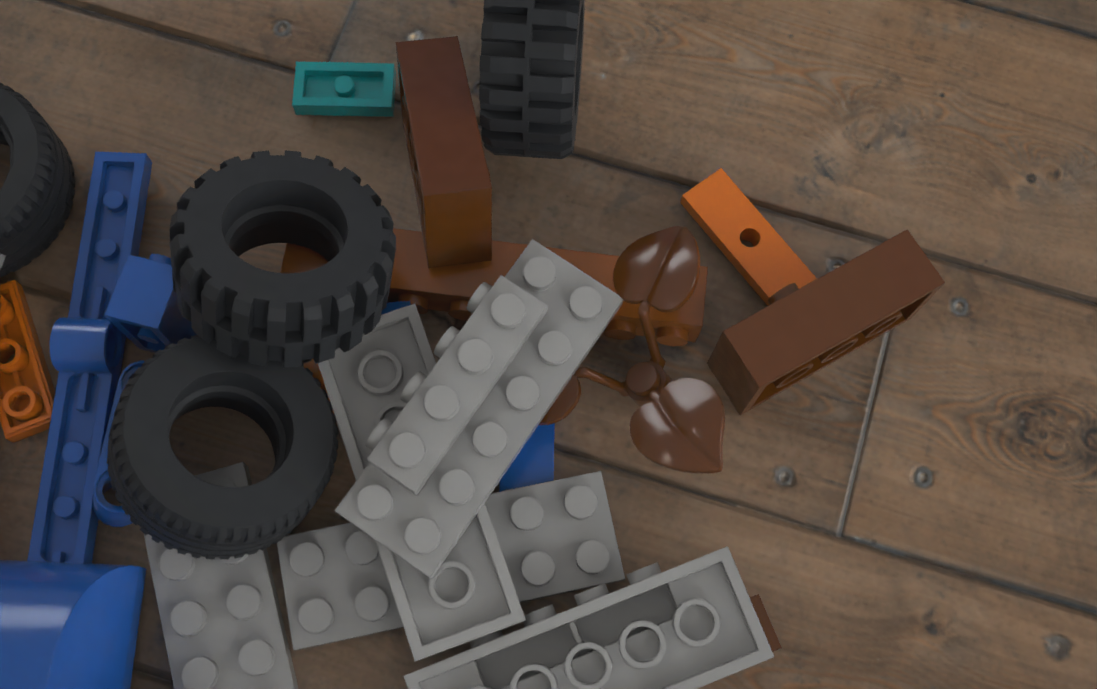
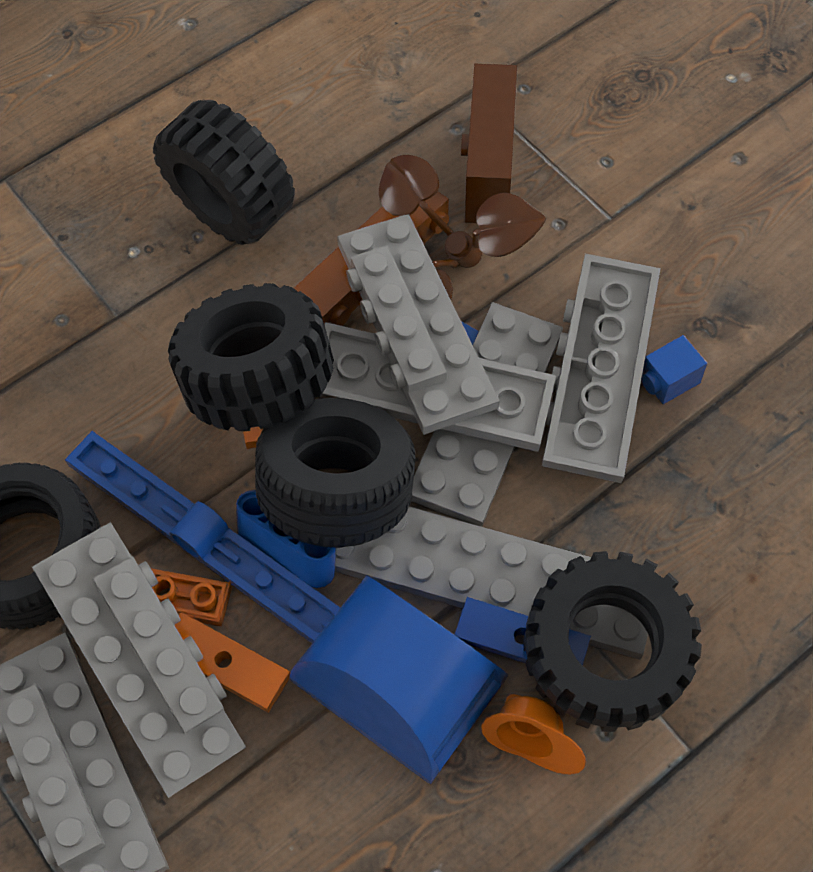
camera: 50 degrees left, 10 degrees down
(146, 305) = (210, 469): blue brick -> none
(344, 89) = (140, 302): teal plate -> none
(445, 152) = (236, 248): reddish brown brick -> none
(730, 218) = (440, 152): orange tile -> none

